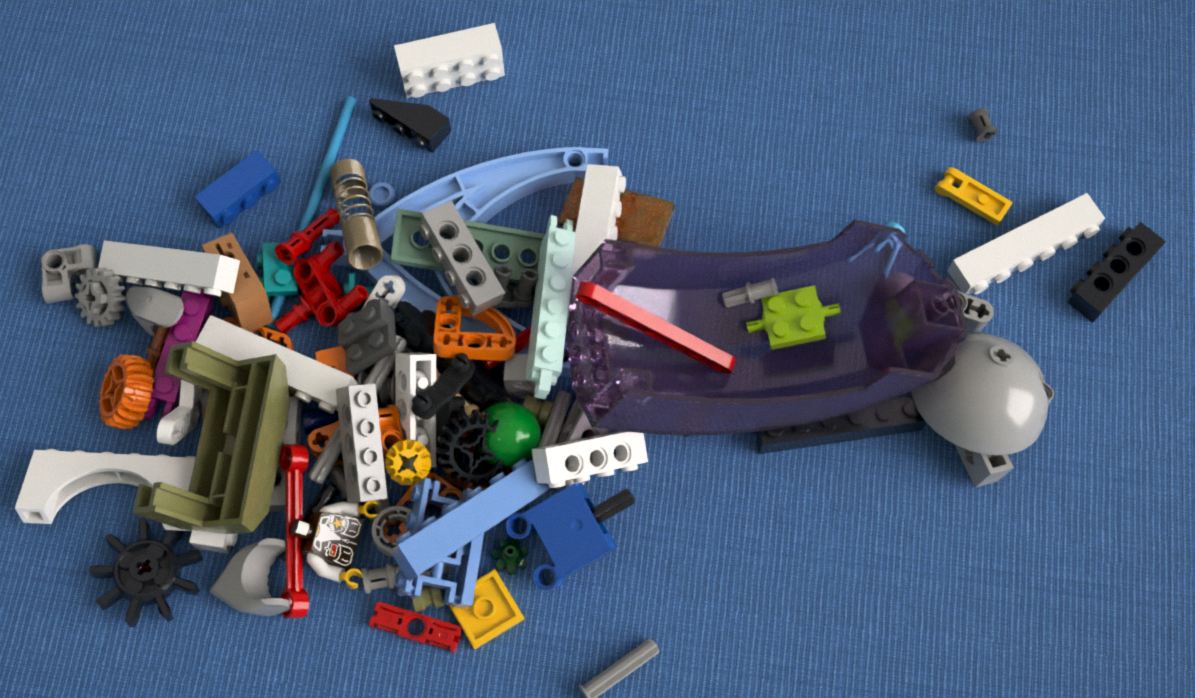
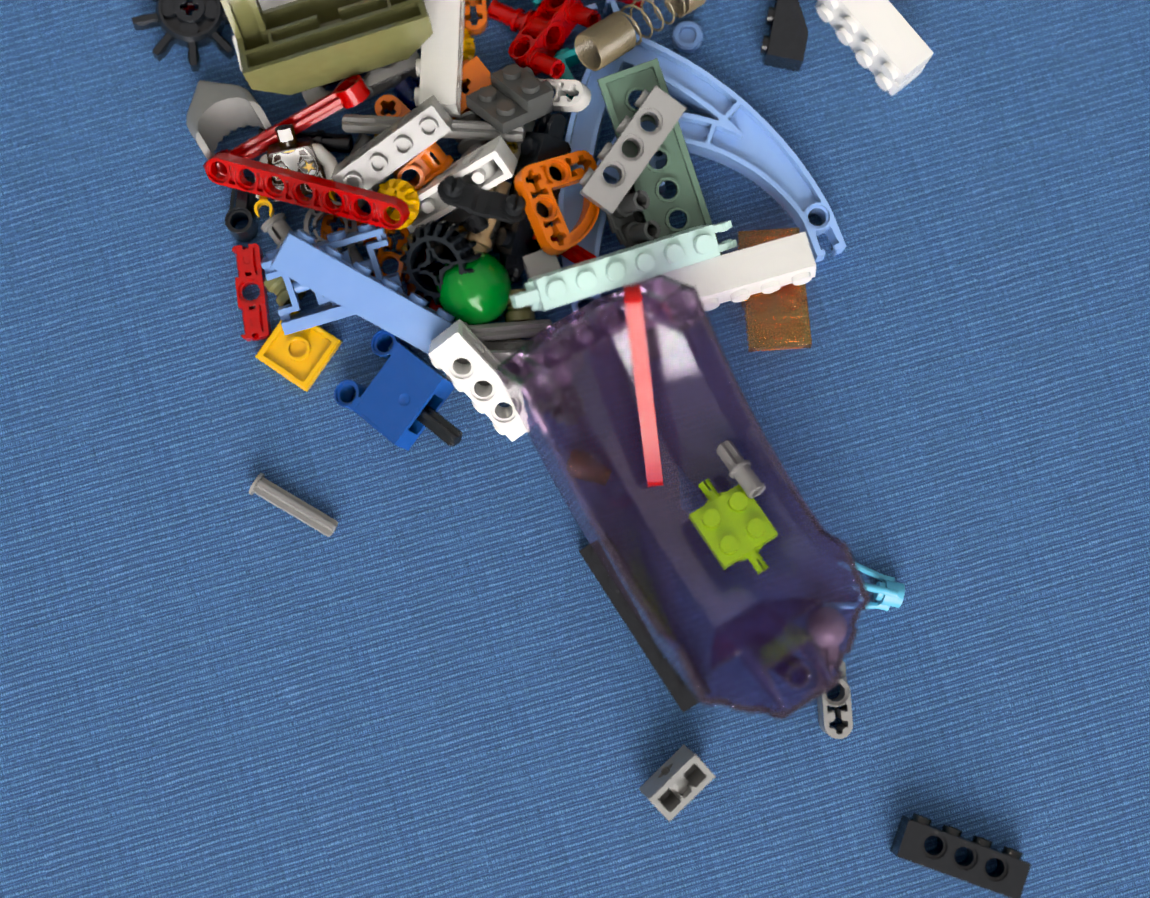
camera: 65 degrees right, 15 degrees up
(339, 600) = (240, 209): none -> black piece
(356, 543) = (320, 187): none -> red beam
(508, 560) = (360, 356): dark green plant -> none
(973, 195) = (982, 667): yellow plate -> none
(982, 124) = (1087, 641): dark grey bush -> none
(987, 397) = (734, 770): light grey piece -> none
(1025, 245) = (948, 746): white brick -> none

